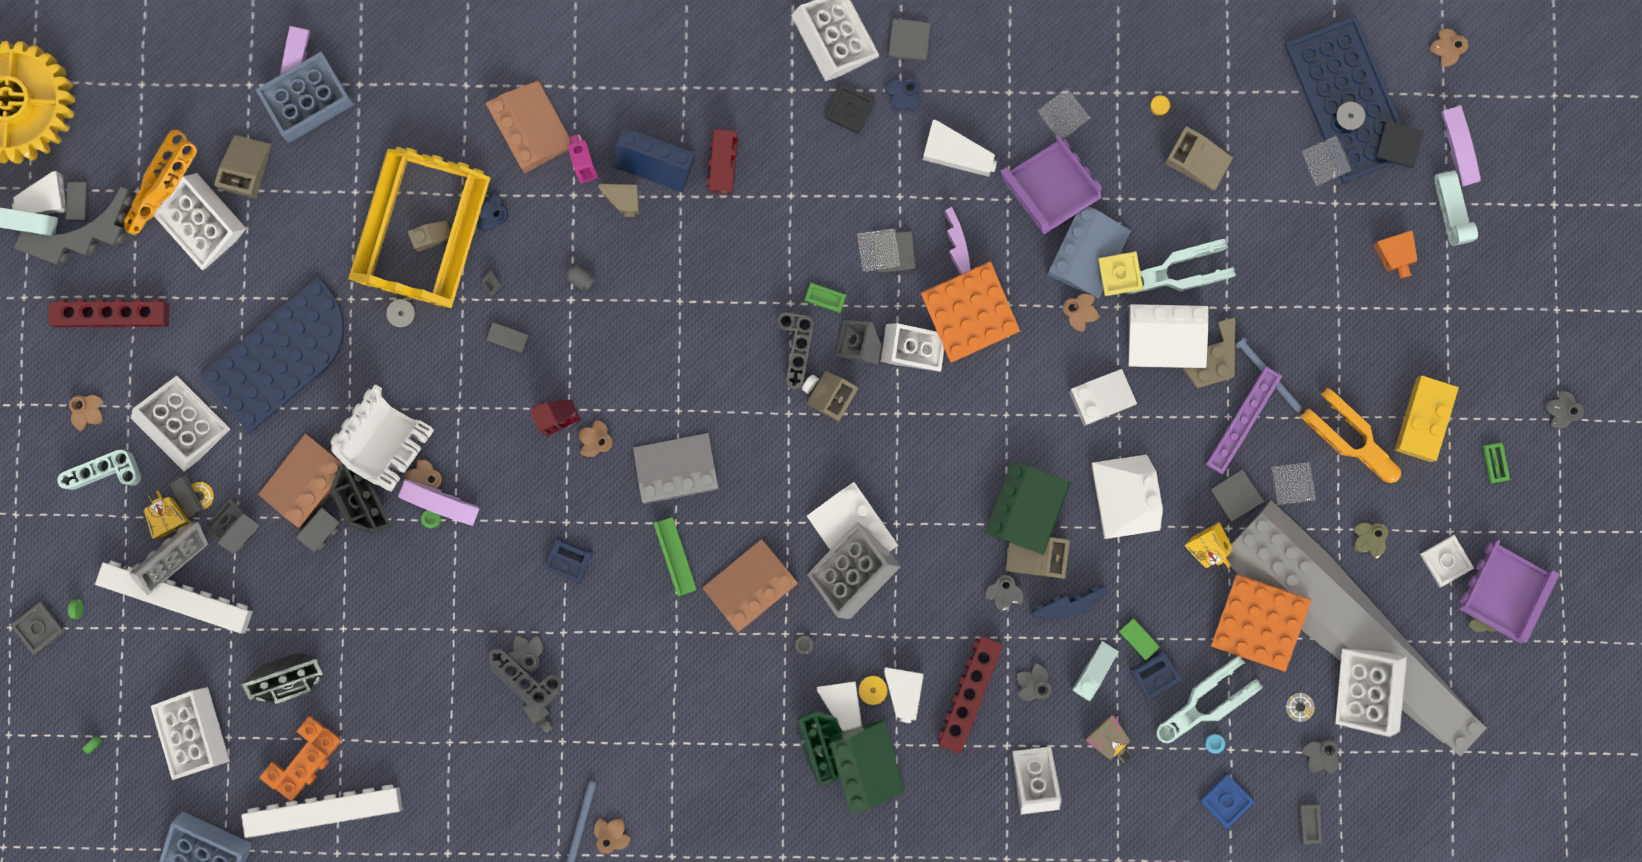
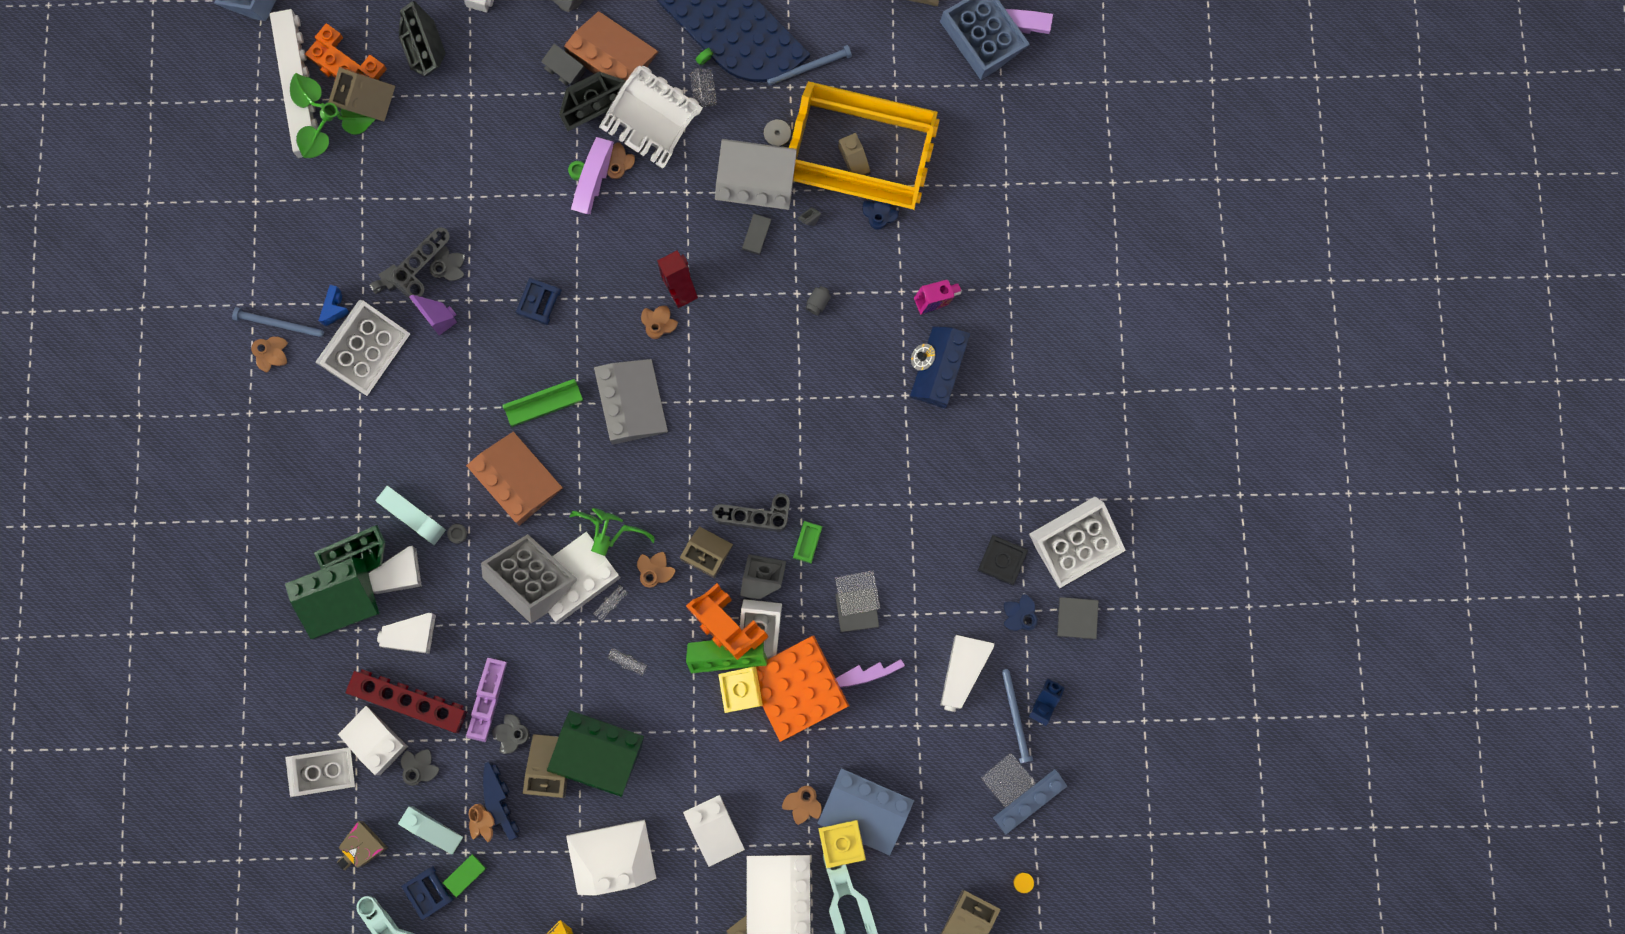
camera: 80 degrees right, 5 degrees down
(315, 384) = (704, 56): none -> bright green tile
(317, 240) = (812, 65): none -> sand blue bar
(340, 740) = (361, 94): none -> dark tan slope
(347, 388) = (703, 87): none -> clear slope
(361, 751) = (308, 139): none -> bright green plant
(447, 334) = (755, 174): none -> light grey slope
(529, 125) = (968, 244): nougat slope -> none
(570, 772) = (330, 310): none -> blue slope
(578, 663) = (435, 313): none -> medium lavender slope
(609, 739) = (363, 347): none -> white slope
(623, 198) = (898, 337): dark tan slope -> none
(643, 175) = (923, 357): none -> light grey piece
(723, 162) = (940, 434): dark red wedge -> none
(784, 690) = (410, 515): none -> light aqua beam
(810, 383) = (719, 529): white tile -> none
(820, 496) = (601, 541): none -> bright green plant
(845, 446) = (656, 567): none -> medium nougat plate
(872, 690) = (411, 603): yellow piece -> none
(879, 493) = (610, 603): none -> clear pin
(905, 385) = (722, 628): none -> orange bracket
(934, 379) = (707, 657): none -> bright green panel
(938, 477) = (627, 661): none -> clear pin
(969, 367) = (740, 689): none -> light yellow tile
(970, 616) = (486, 699): none -> lavender slope
(989, 74) = (1046, 702): none -> dark blue slope
(1004, 103) = (1016, 717): none -> sand blue bar
(1007, 729) = (372, 741): none -> white slope
(1052, 185) = (931, 770): medium lavender panel -> none
(1084, 95) = (1030, 802): none -> sand blue plate
(1089, 621) = (481, 822): none -> medium nougat plate

